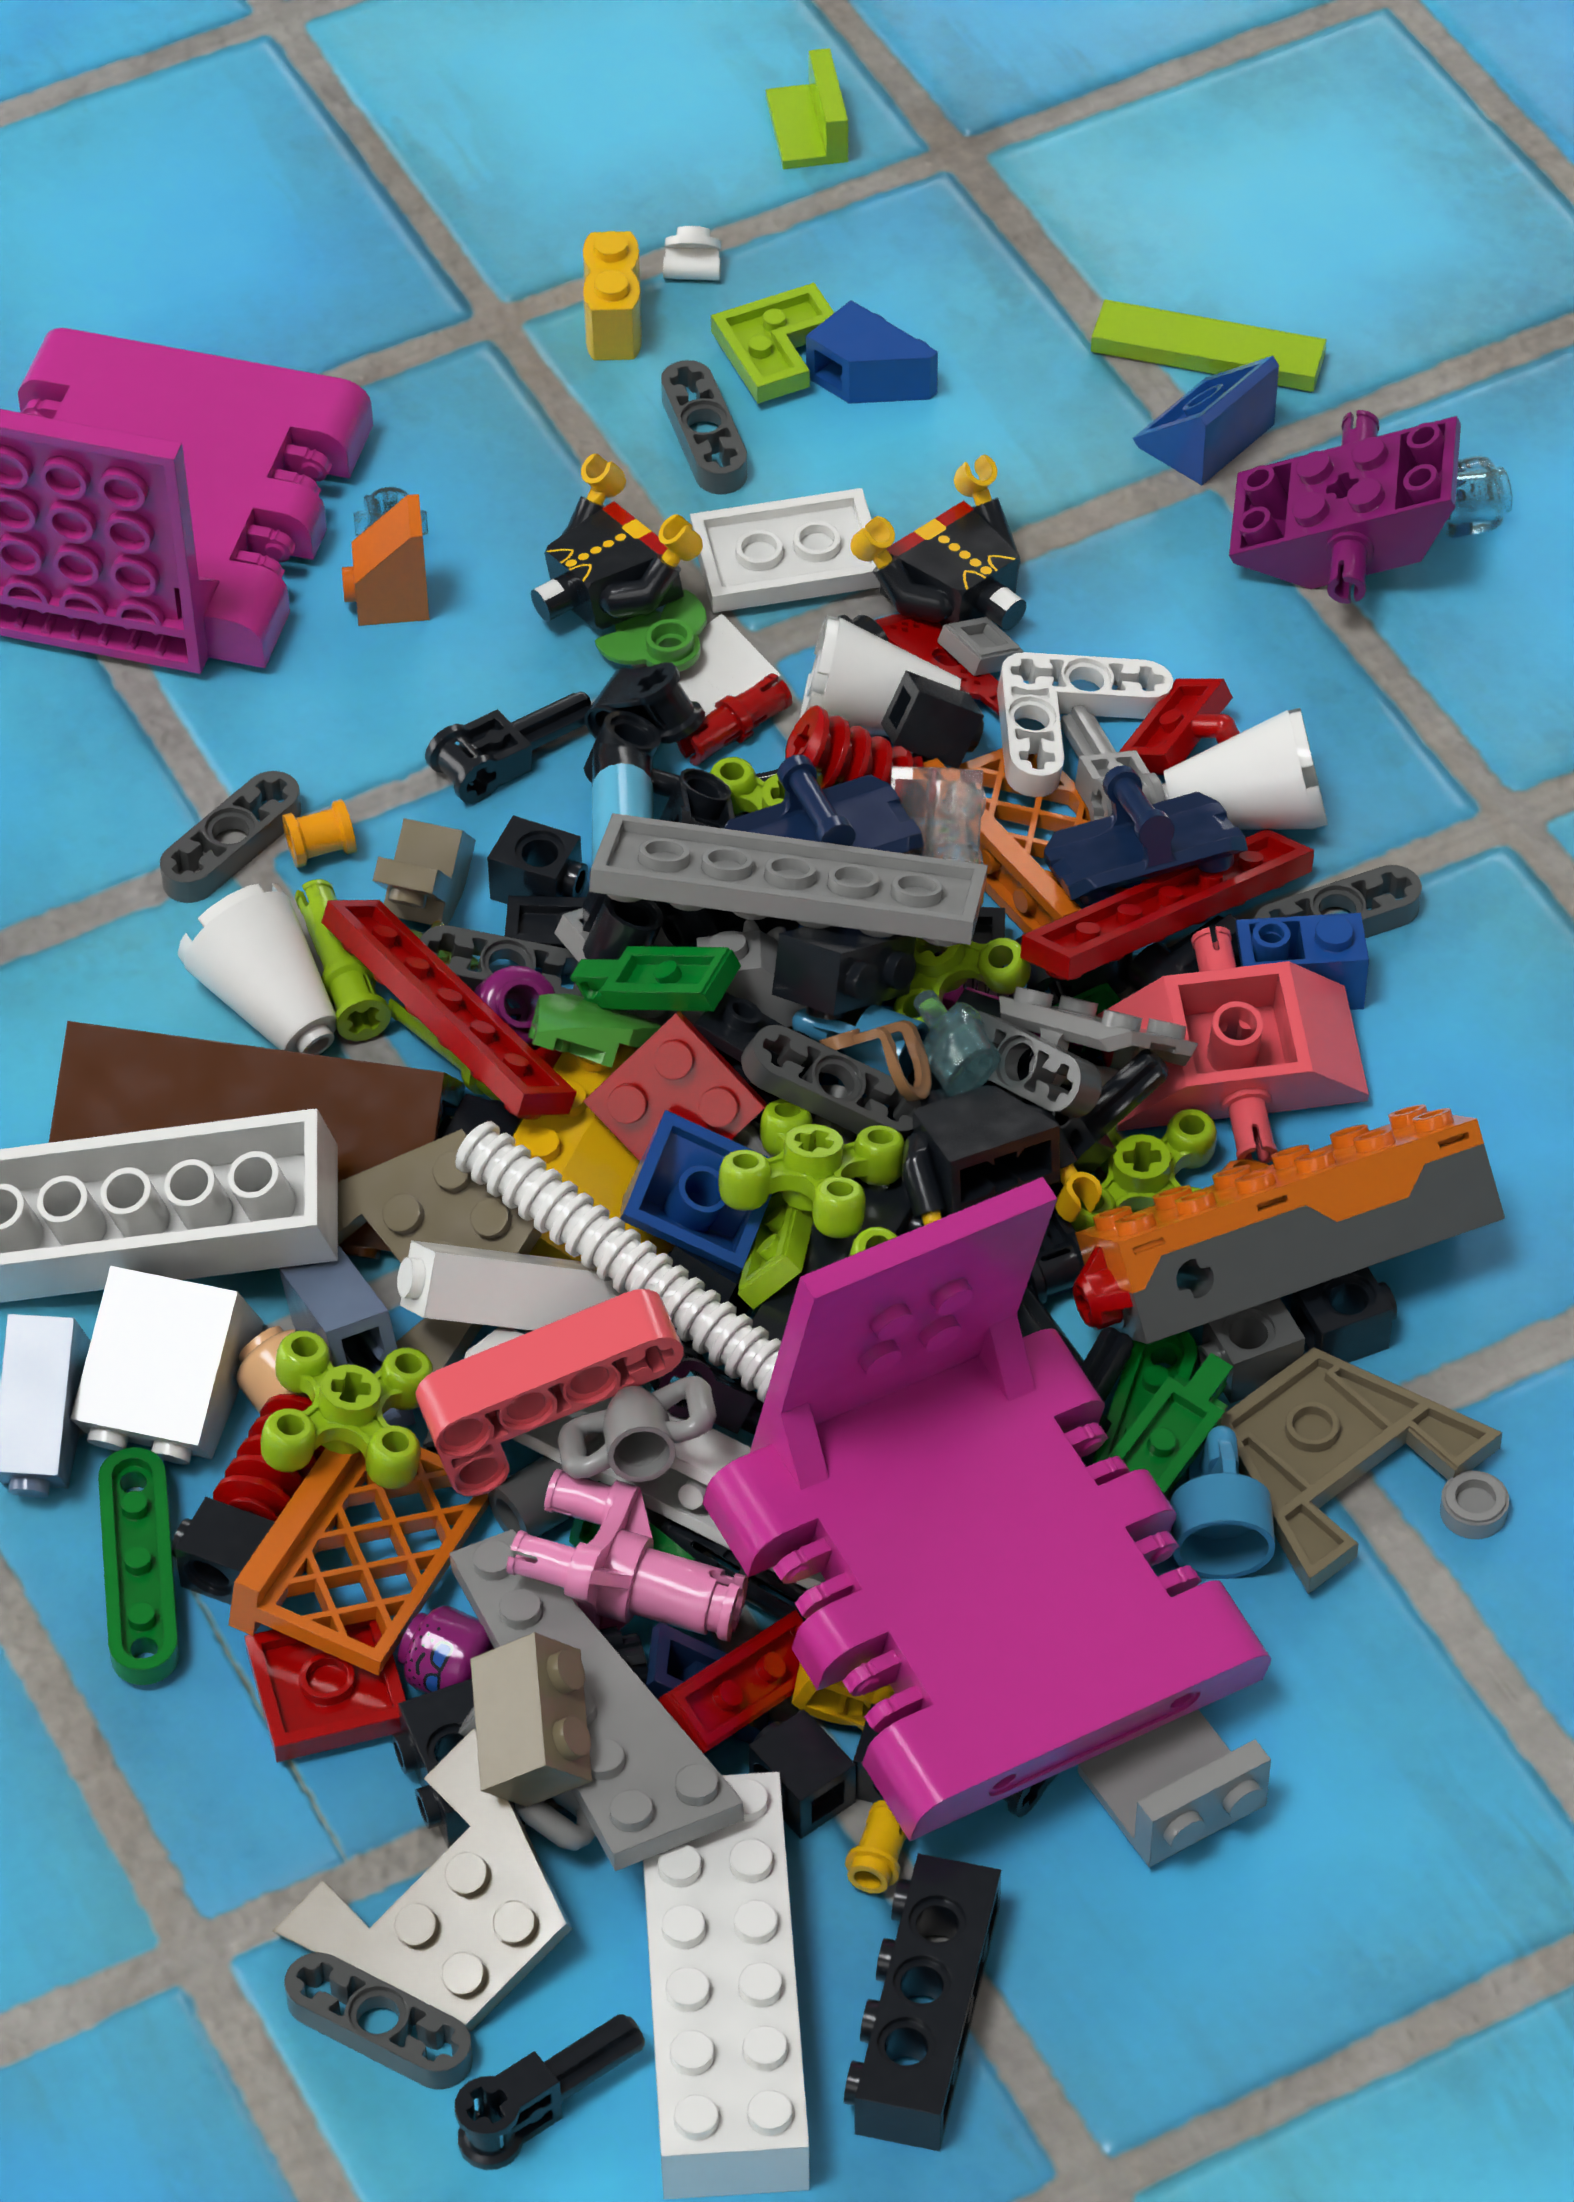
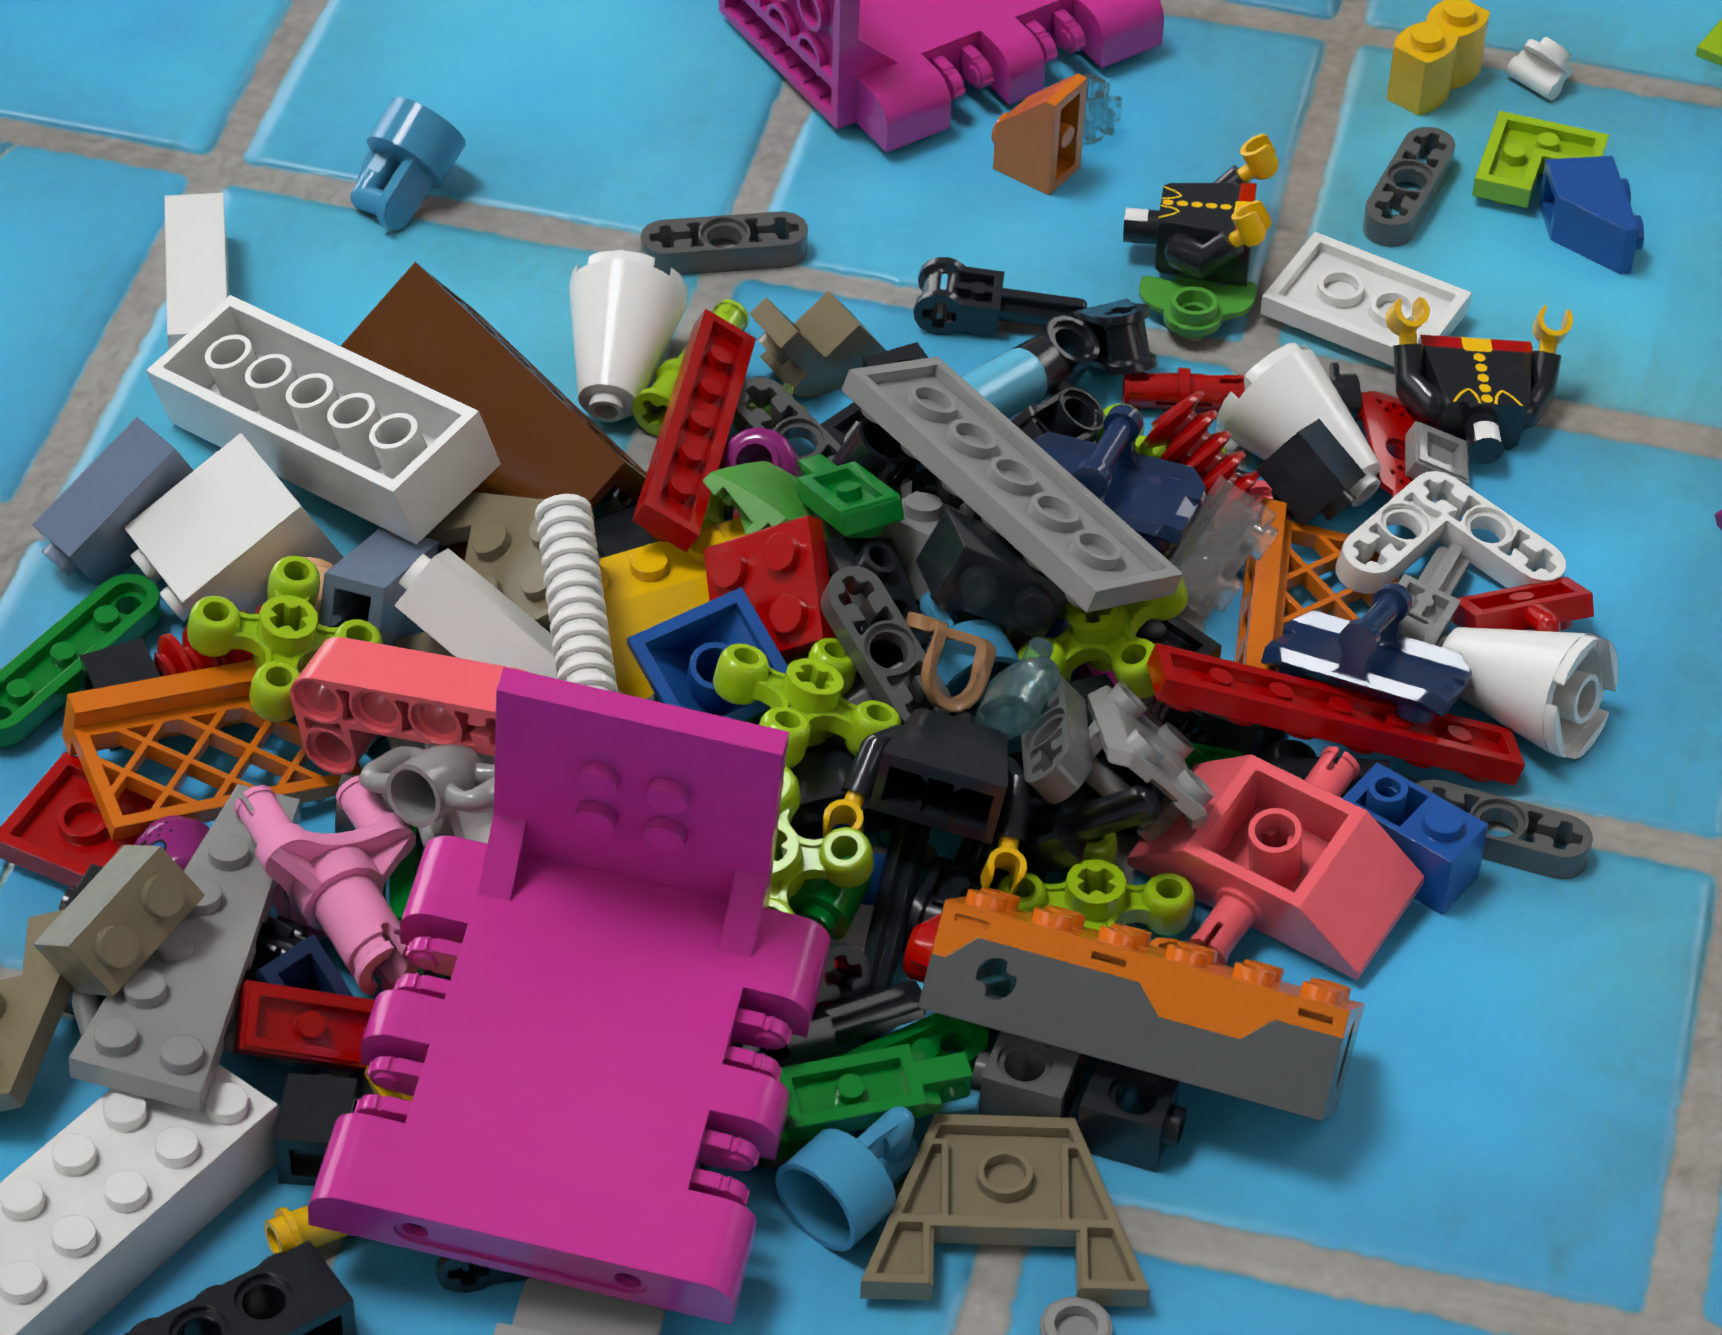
camera: 40 degrees right, 5 degrees down
(319, 833) = (781, 276): light orange bush -> none
(725, 665) = (1225, 352): white sticker -> none

